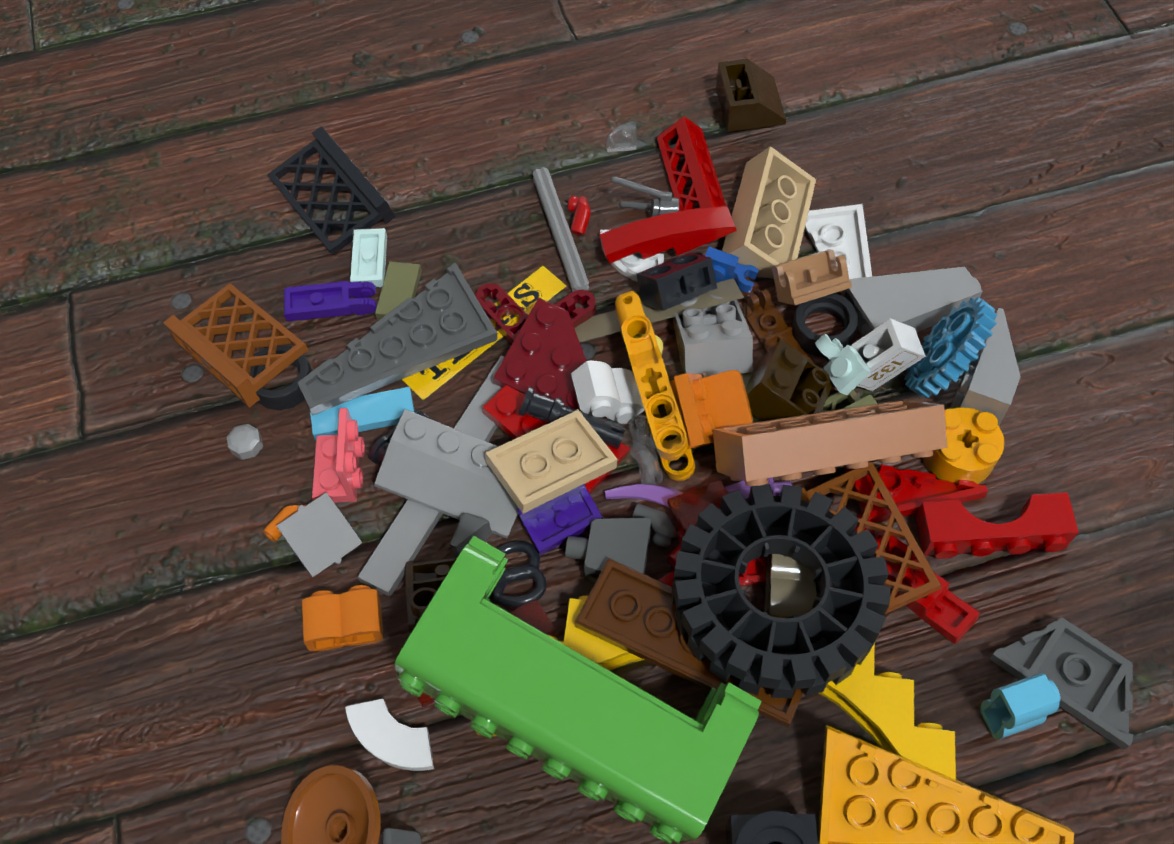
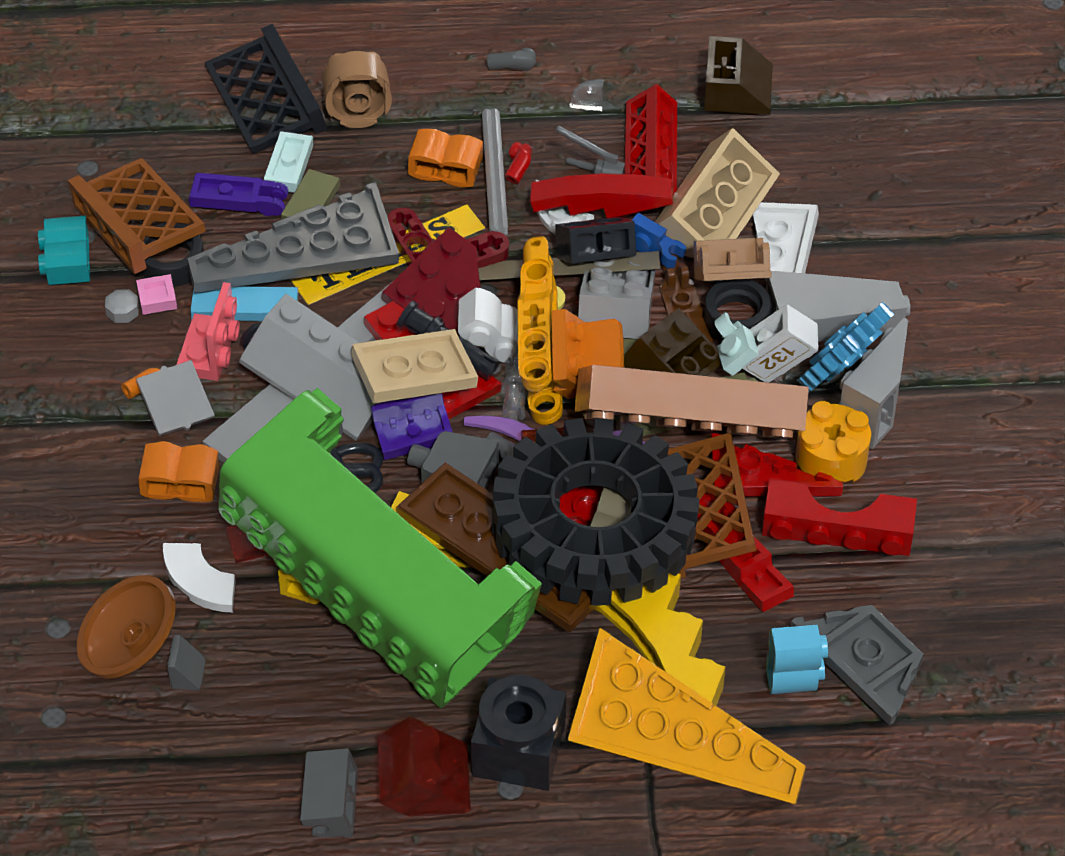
camera: 10 degrees right, 10 degrees down
(176, 394) = (65, 250): none -> teal brick
(275, 423) = (156, 294): none -> bright pink plate
(414, 173) = (356, 88): none -> medium nougat brick
(512, 224) = (445, 157): none -> orange brick
(549, 117) = (517, 60): none -> dark grey arm

